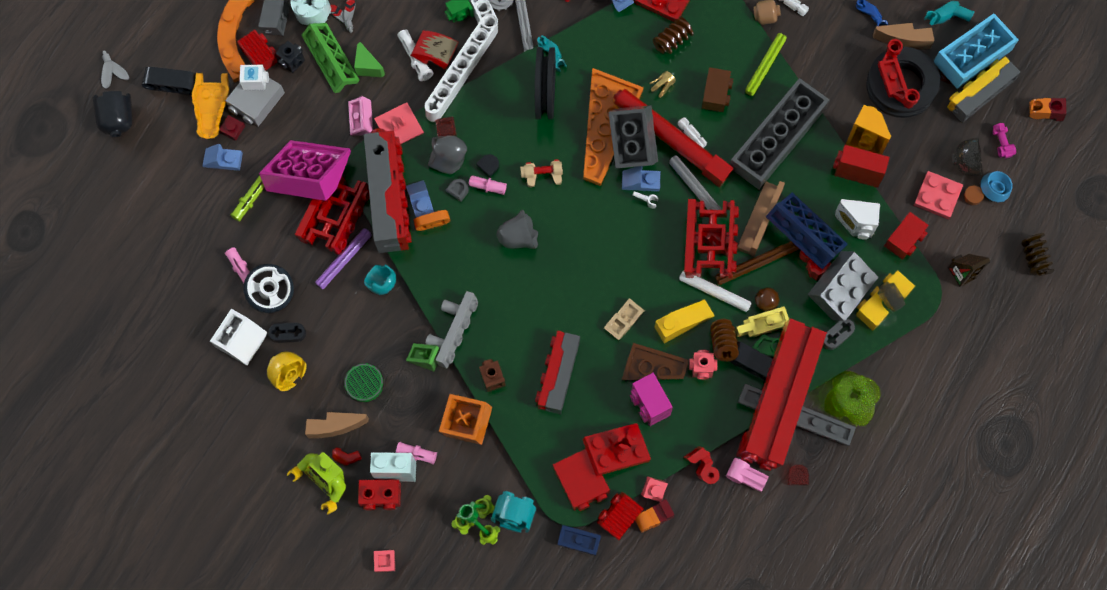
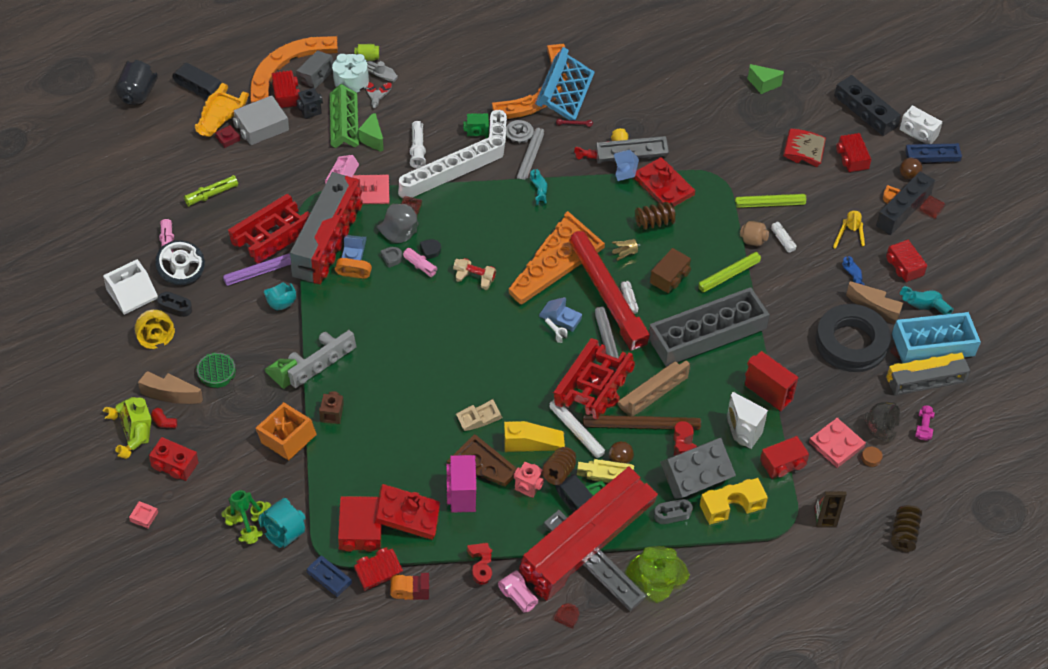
camera: 20 degrees right, 20 degrees down
(109, 67) = (156, 54): light grey piece -> none
(222, 158) = (205, 155): medium blue slope -> none
(253, 77) = (267, 100): white brick -> none
(305, 170) = (266, 186): dark pink slope -> none
(393, 466) = (199, 436): light aqua brick -> none
(417, 452) = (226, 443): bright pink pin -> none
(434, 48) = (436, 143): slope -> none
(518, 232) = (418, 305): dark grey piece -> none
(545, 82) = (514, 197): black tyre -> none
(558, 373) = (392, 430): piece -> none
(633, 136) = (570, 270): dark grey brick -> none
(654, 489) = (424, 563): coral plate -> none
(804, 238) = (680, 404): dark blue fence -> none
(869, 131) = (792, 350): light orange slope -> none
(891, 296) = (738, 493): clear smoke brick -> none
(893, 76) = (842, 324): red plate -> none
(996, 186) = (898, 457): dark azure hat -> none
(1048, 108) = (983, 414): leg -> none

